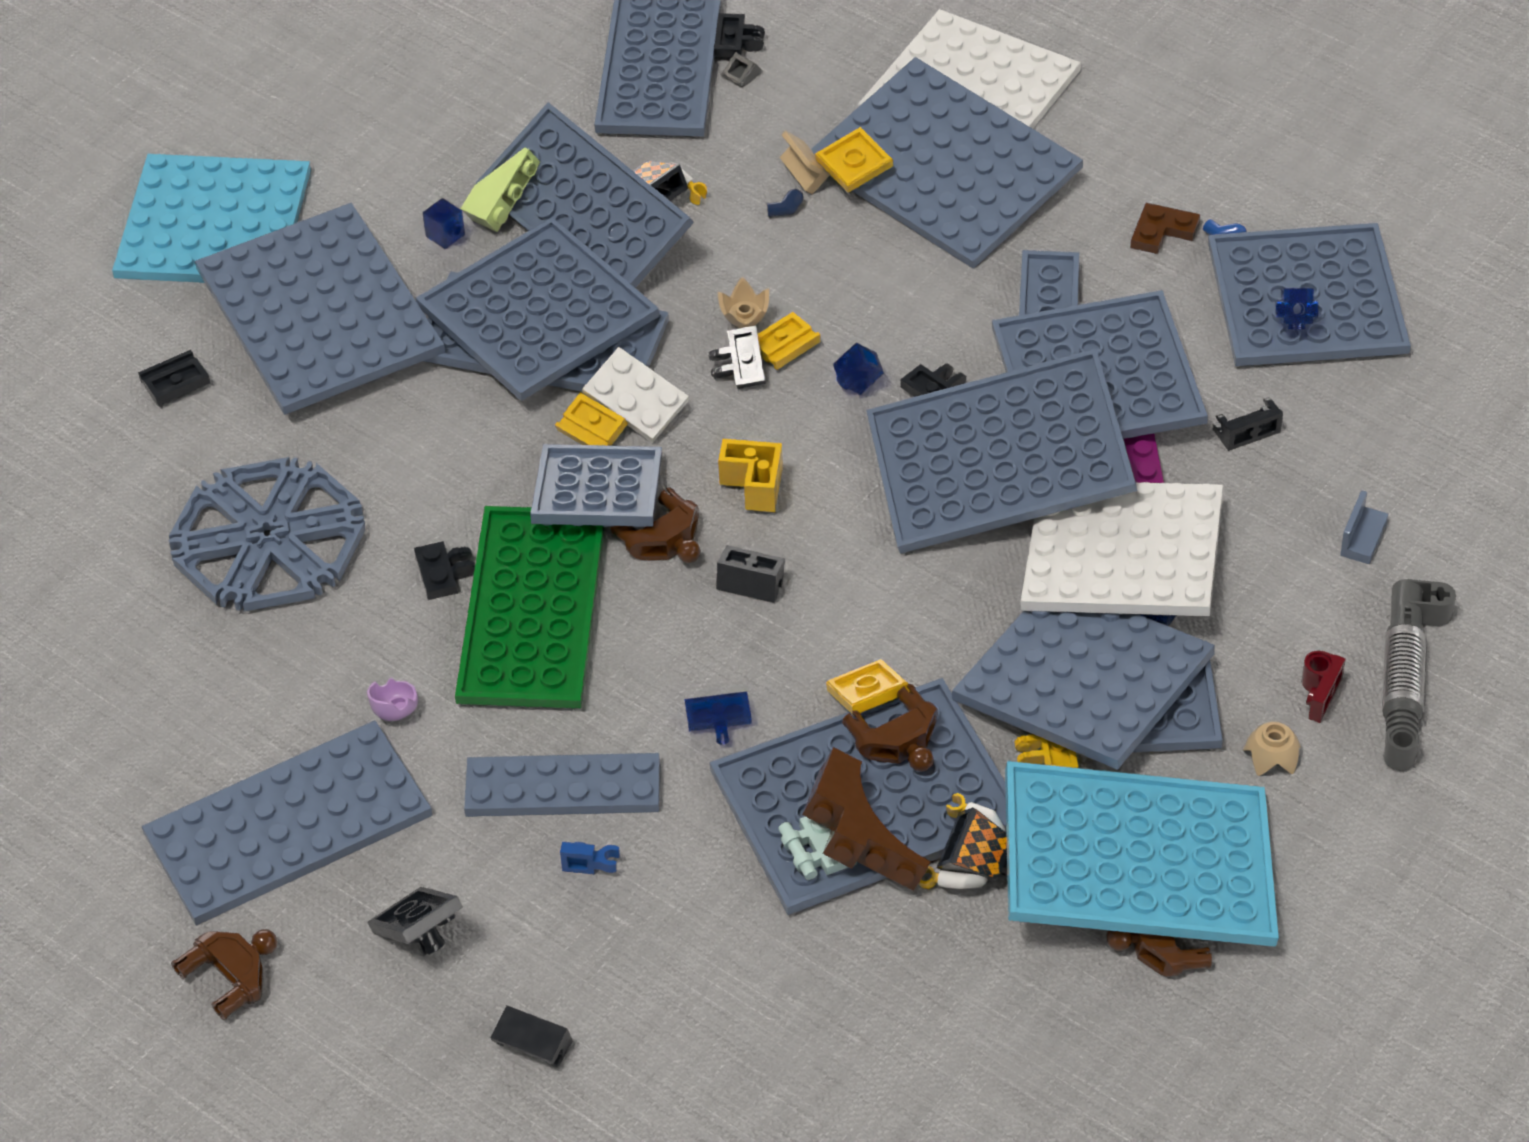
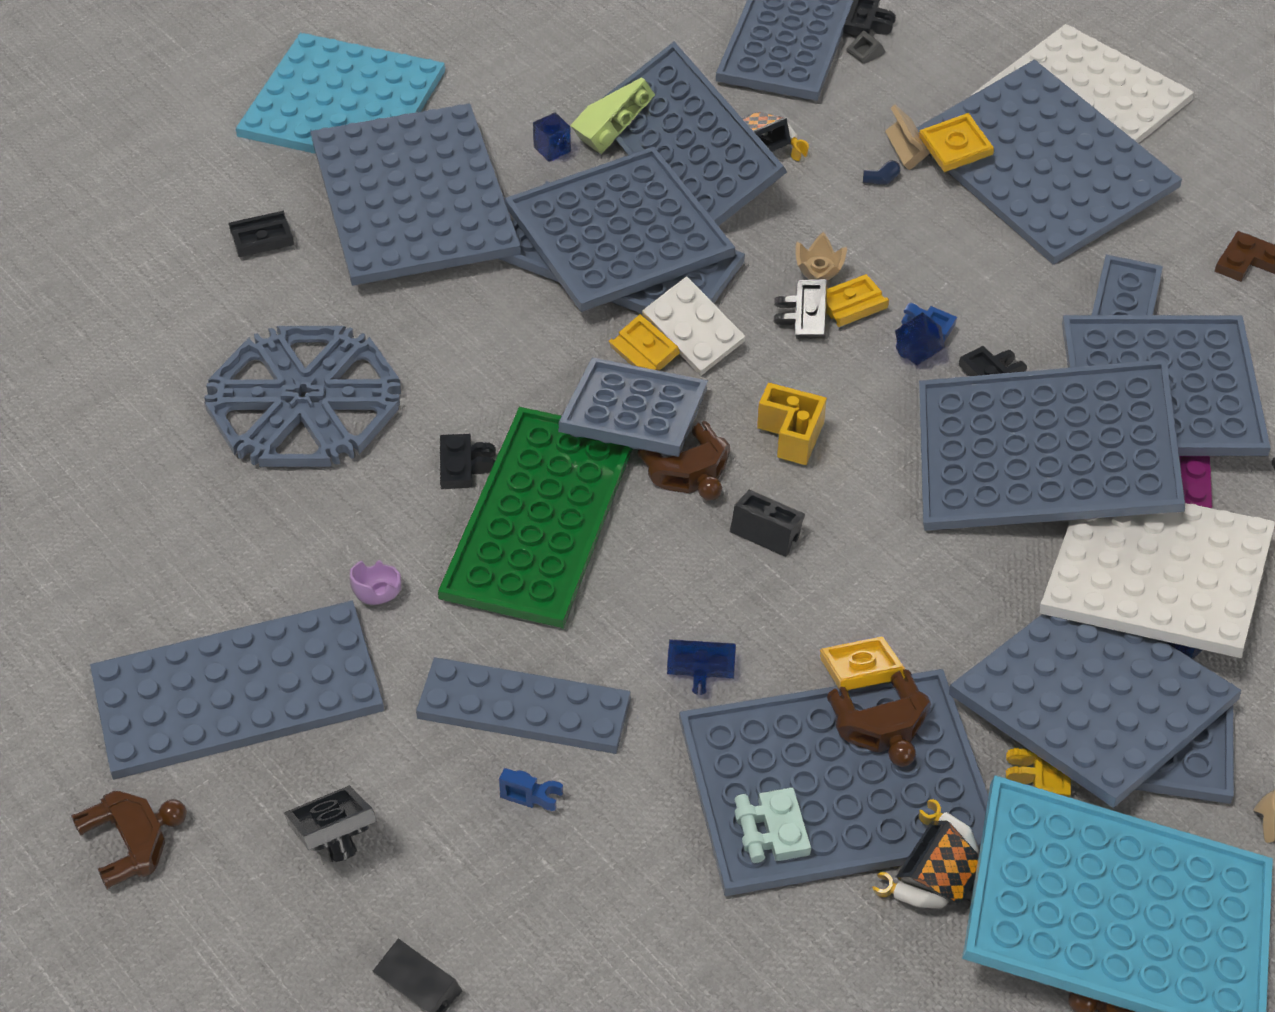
camera: 10 degrees right, 0 degrees up
(855, 829) = (816, 820): reddish brown arch -> none
(872, 342) = (942, 318): none -> blue plate

